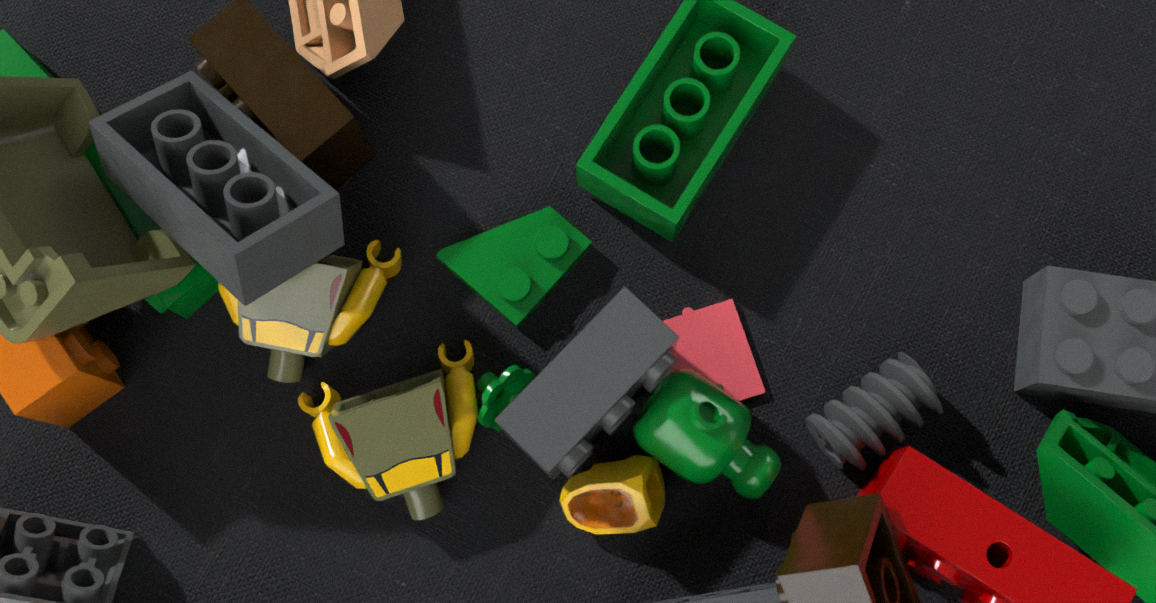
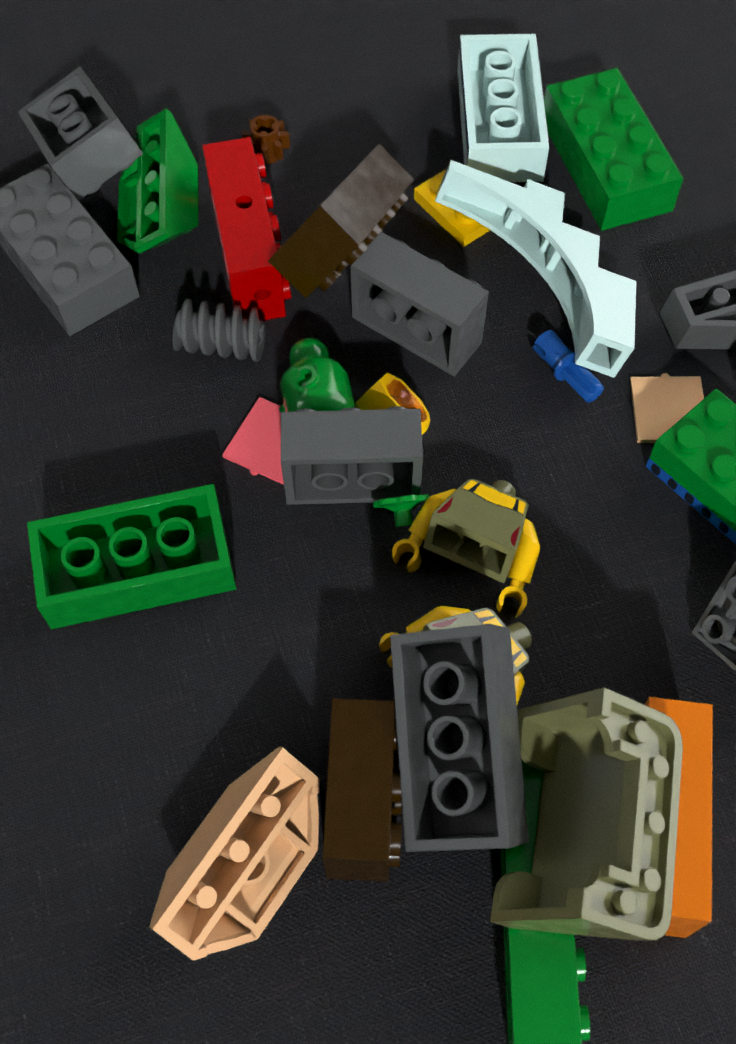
camera: 140 degrees left, 15 degrees down
(518, 262) = (317, 576): green wing -> none

